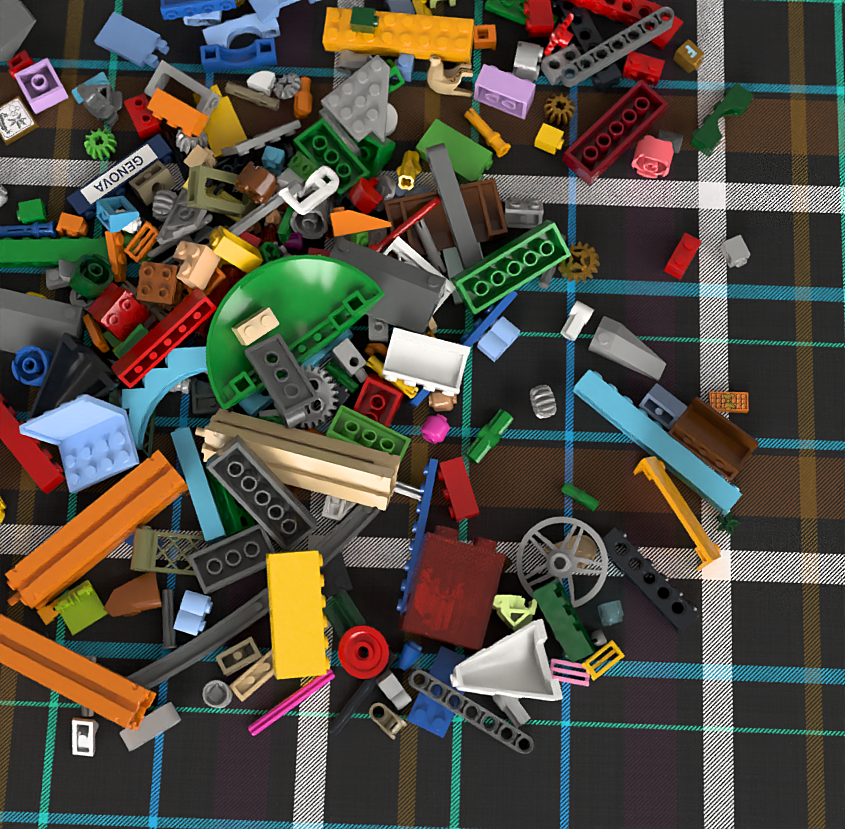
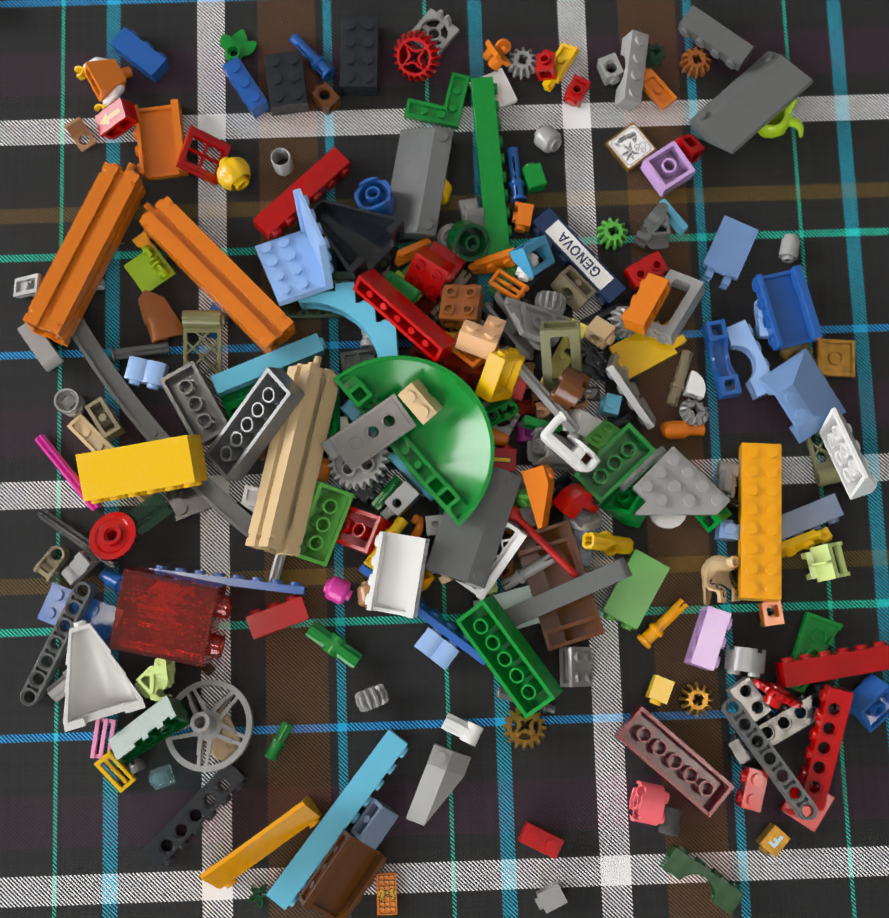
camera: 85 degrees right, 5 degrees up
(364, 20) = (766, 483): dark green brick -> none

